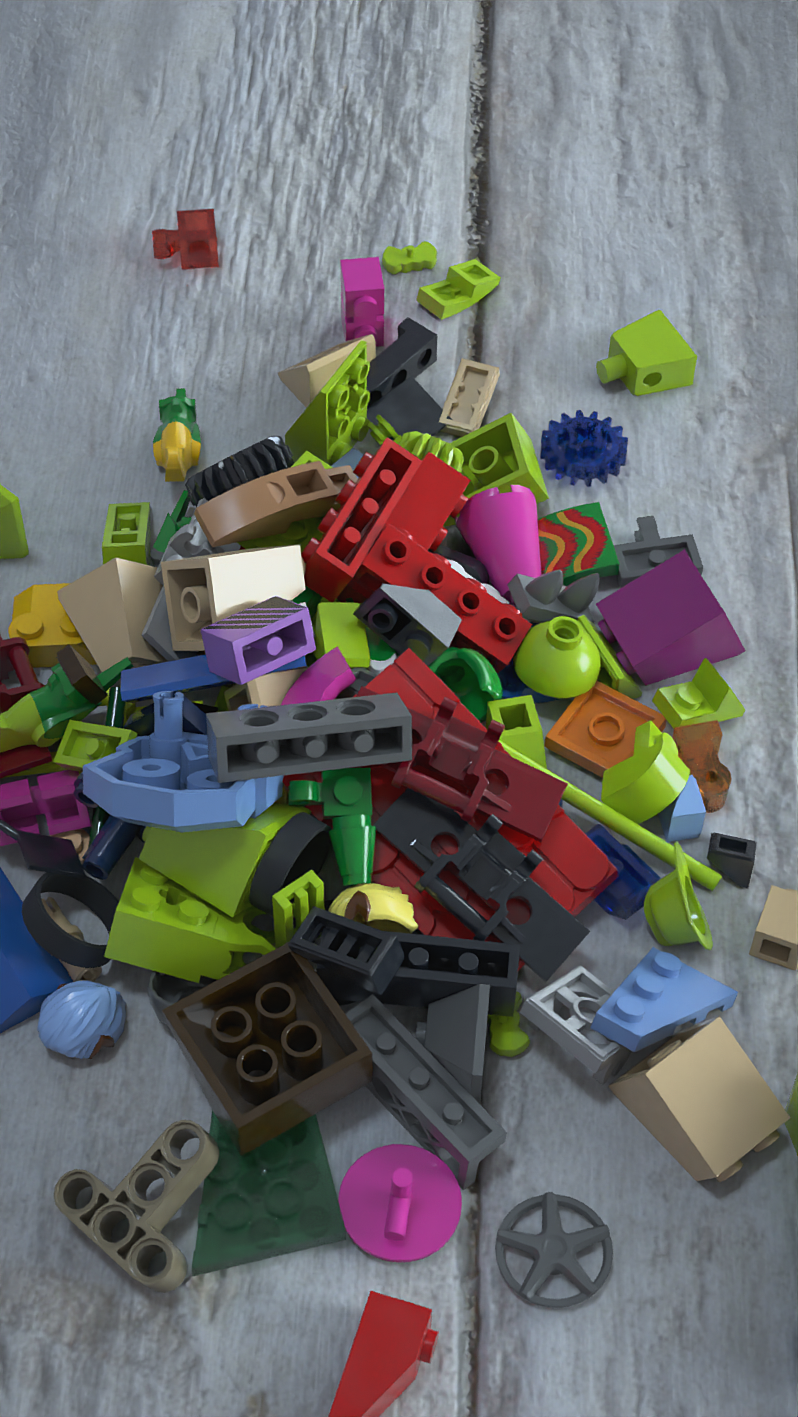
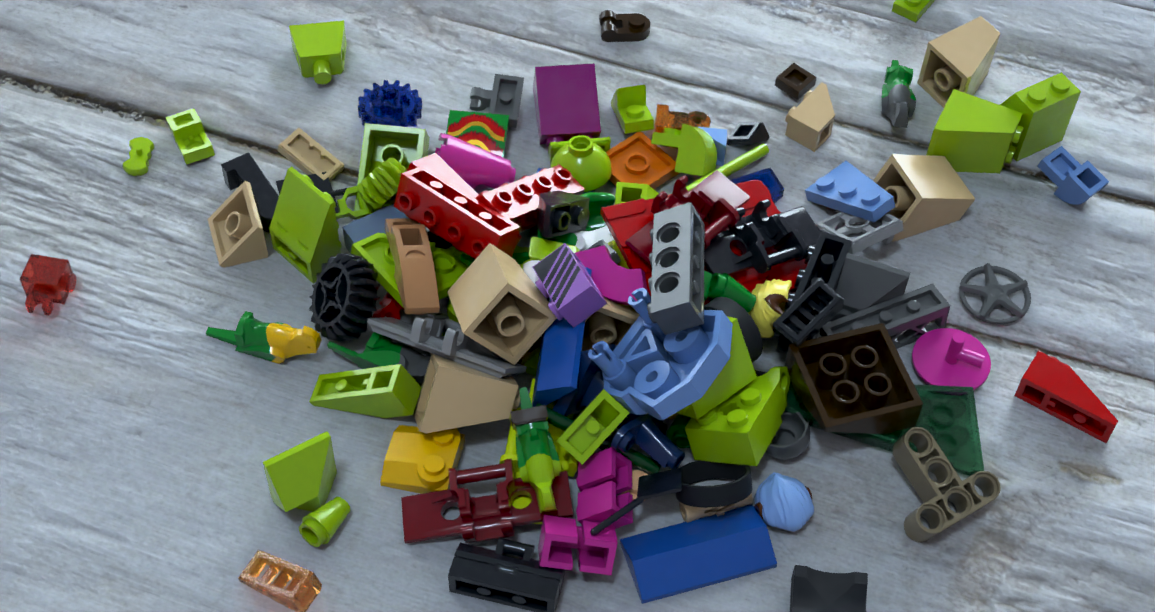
camera: 75 degrees left, 0 degrees up
(307, 892) = (769, 340): lime tile -> none
(362, 299) = (194, 185): dark pink piece -> none
(547, 598) = (527, 155): dark grey tile -> none
(675, 909) = (787, 161): lime piece -> none

